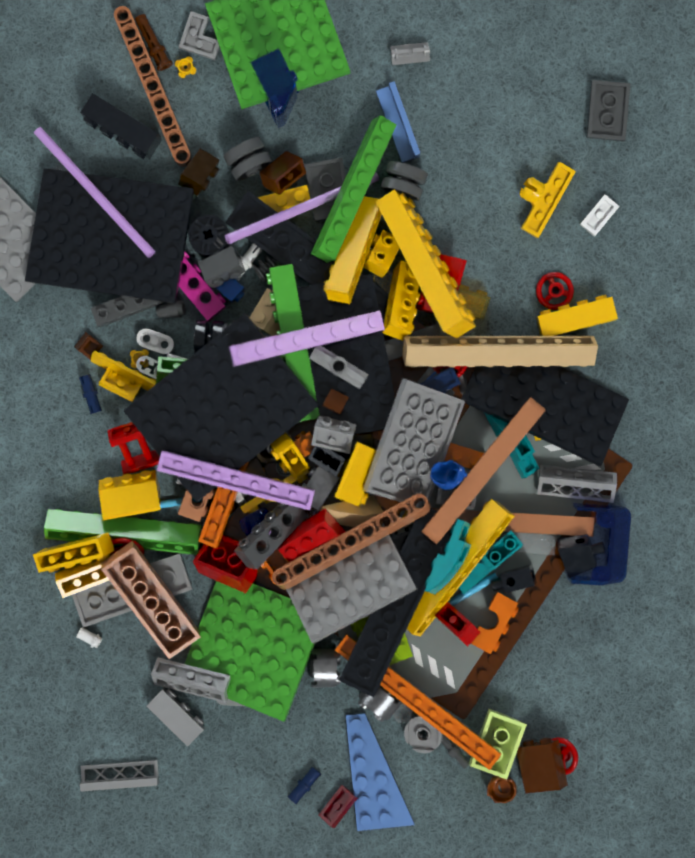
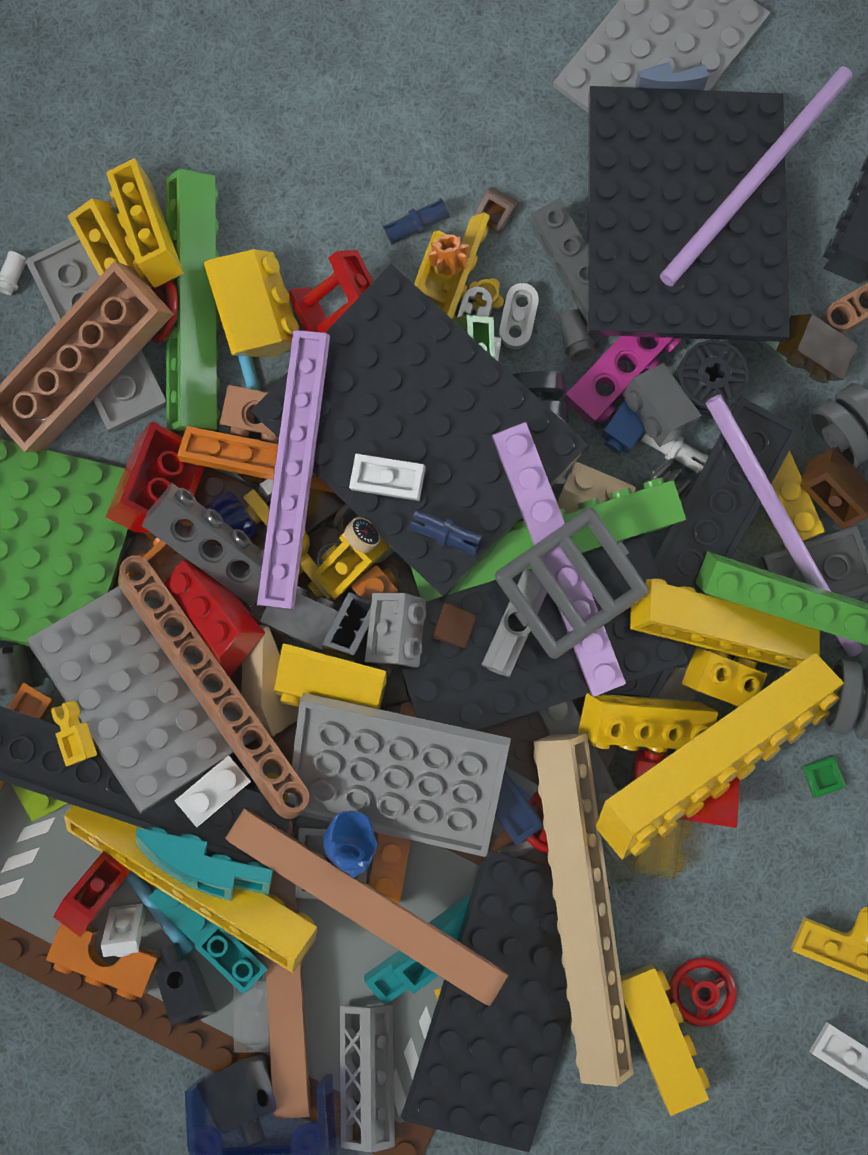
camera: 85 degrees right, 5 degrees down
(26, 237) = (664, 78): none -> sand blue slope
(116, 376) = (449, 255): none -> orange gear
(248, 427) = (387, 477): none -> white plate
(278, 446) = (362, 535): none -> tile
(284, 399) = (445, 532): none -> dark blue pin
(337, 314) = (533, 558): none -> dark grey bar
(371, 621) = (74, 736): none -> yellow plate
(409, 548) = (212, 791): none -> white plate
(444, 205) = (823, 776): none -> green tile
(479, 608) = (123, 930): none -> white plate

